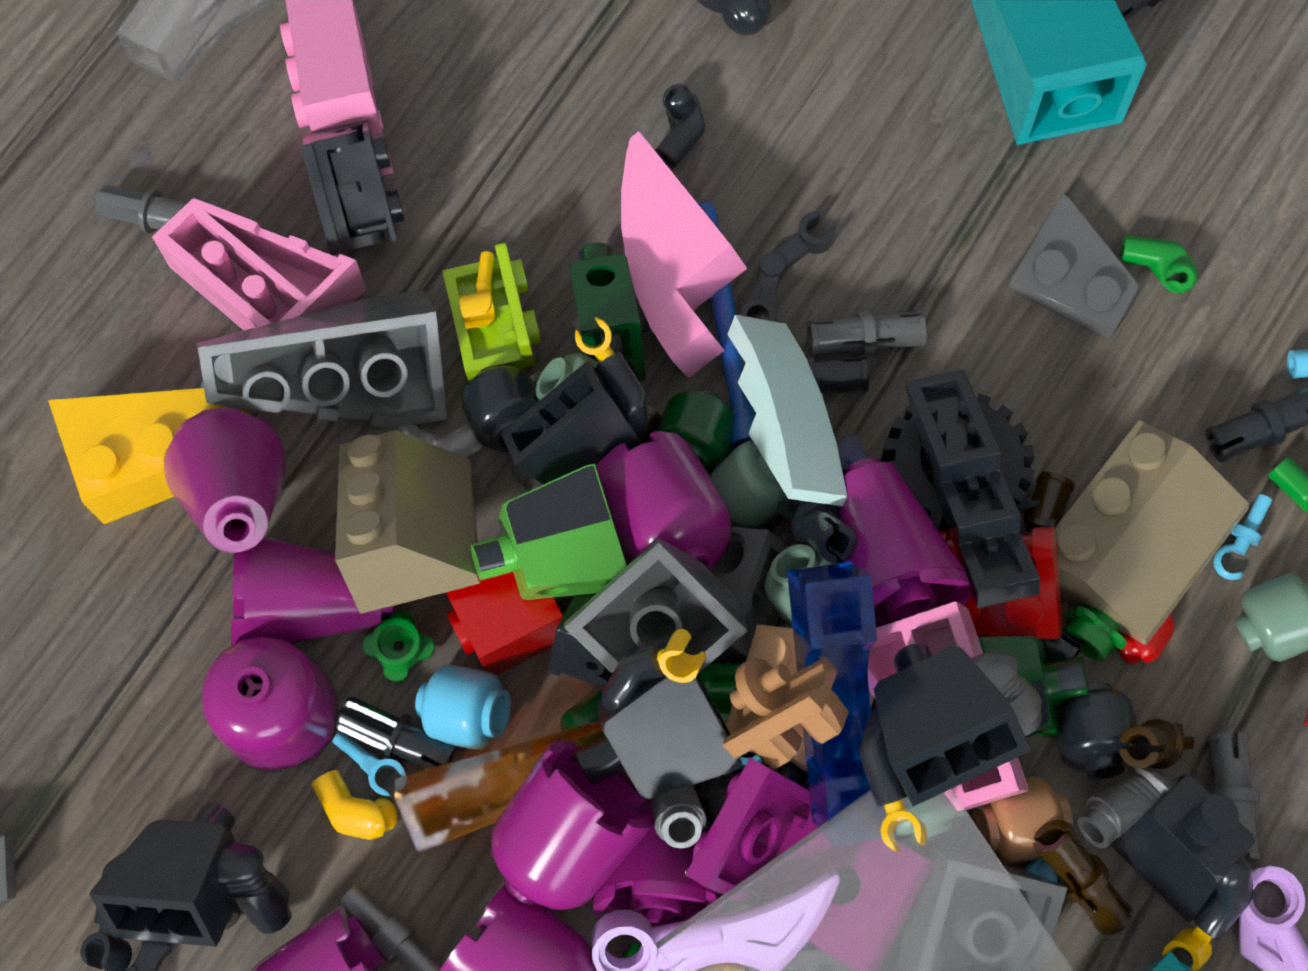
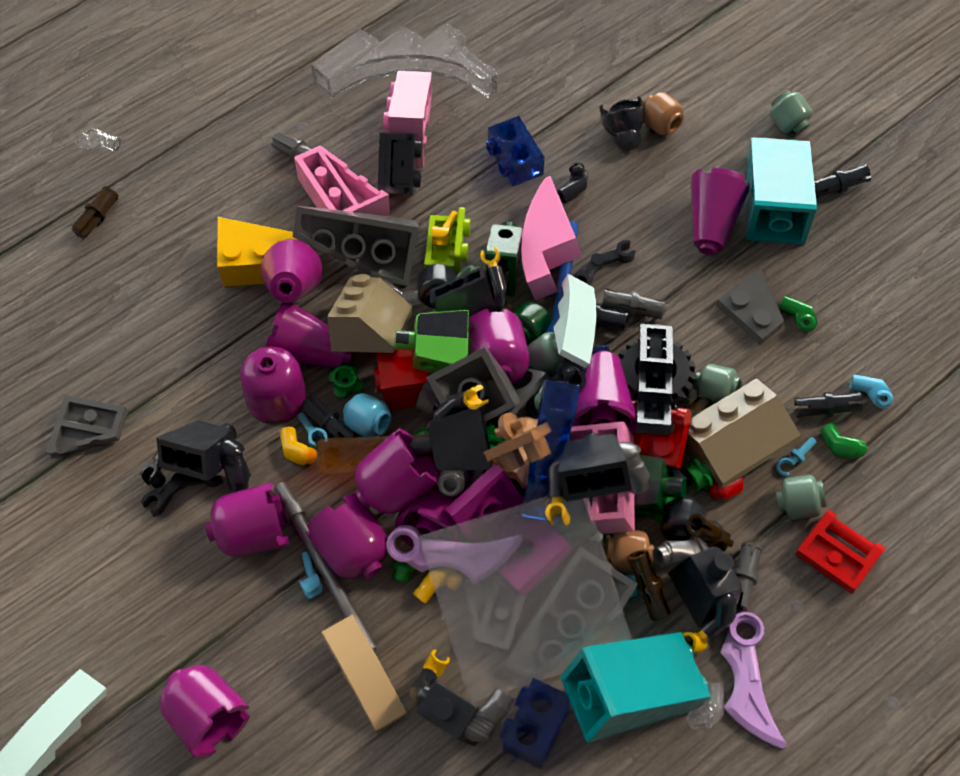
camera: 15 degrees right, 10 degrees down
(563, 89) = (515, 151): none -> clear blue brick
(953, 104) = (716, 206): none -> magenta cone
(1070, 445) = (716, 382): none -> sand green head

